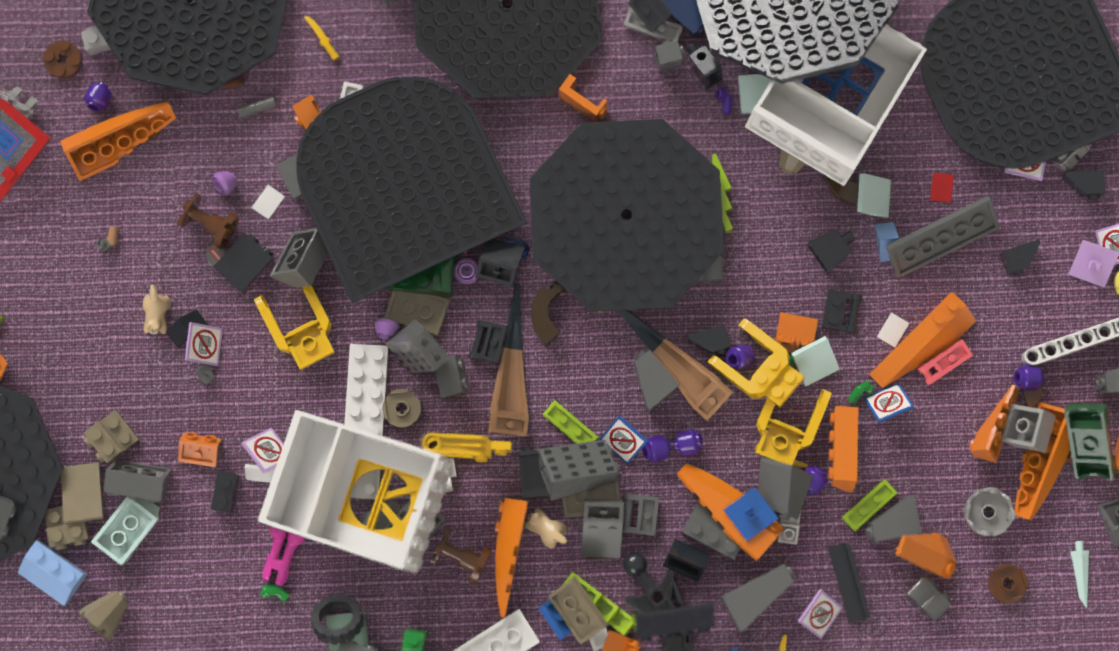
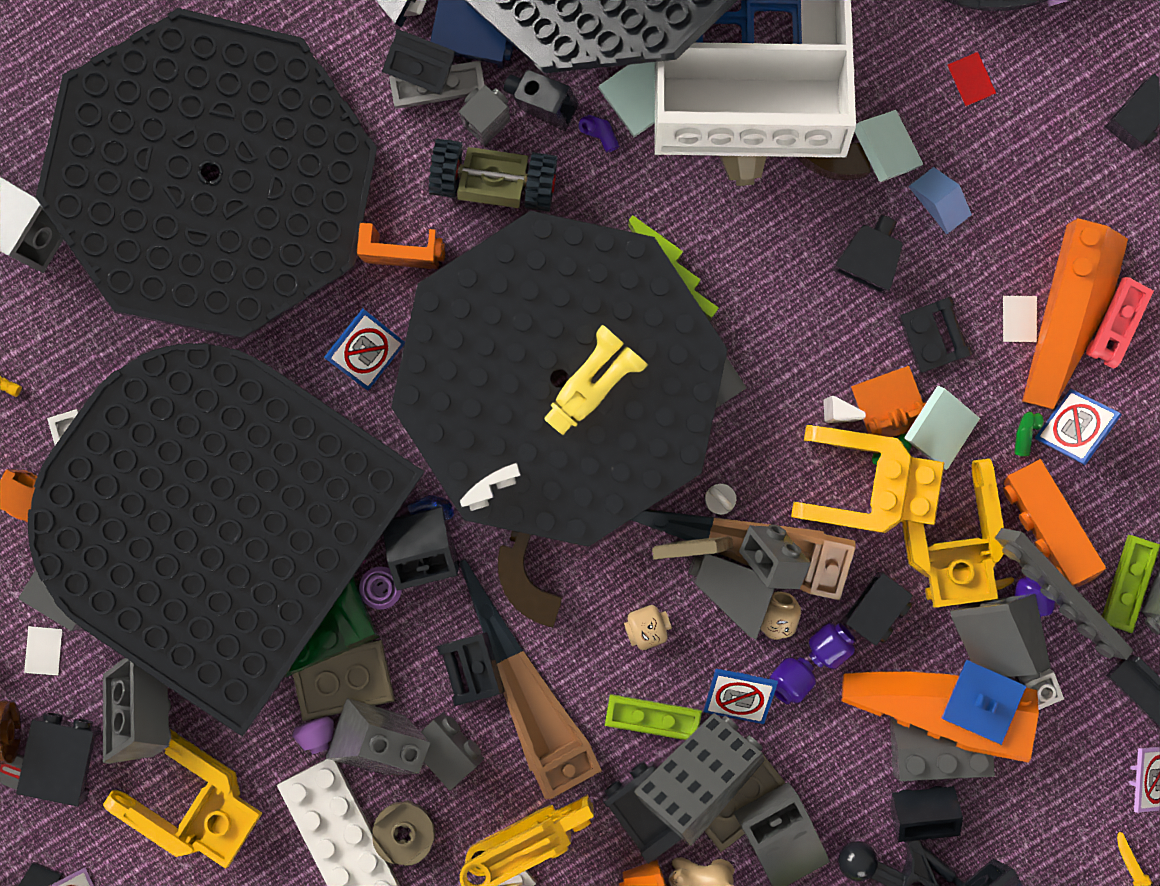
camera: 30 degrees left, 5 degrees up
(532, 142) = (364, 349): none -> piece
(550, 248) = (478, 495): none -> white slope
(595, 375) = (647, 627): none -> tan head
(632, 228) = (582, 396): none -> light yellow piece
(644, 343) = (692, 547): none -> dark tan tile
(646, 514) = (832, 781): dark grey plate -> none
(653, 90) = (492, 176): none -> plate
(669, 409) = (781, 616): none -> tan head
(674, 331) = (720, 499): none -> white tile
(684, 372) = (774, 557): none -> dark grey brick
(711, 340) = (780, 482): black slope -> none
(725, 437) = (878, 609): none -> black piece
(740, 357) = (835, 484): dark purple head -> none
(753, 597) = (1054, 806): dark grey slope -> none
(766, 321) = (840, 411): none -> white slope
(825, 478) = (1059, 589): none -> dark grey plate
(942, 237) = (1017, 148): dark grey plate -> none

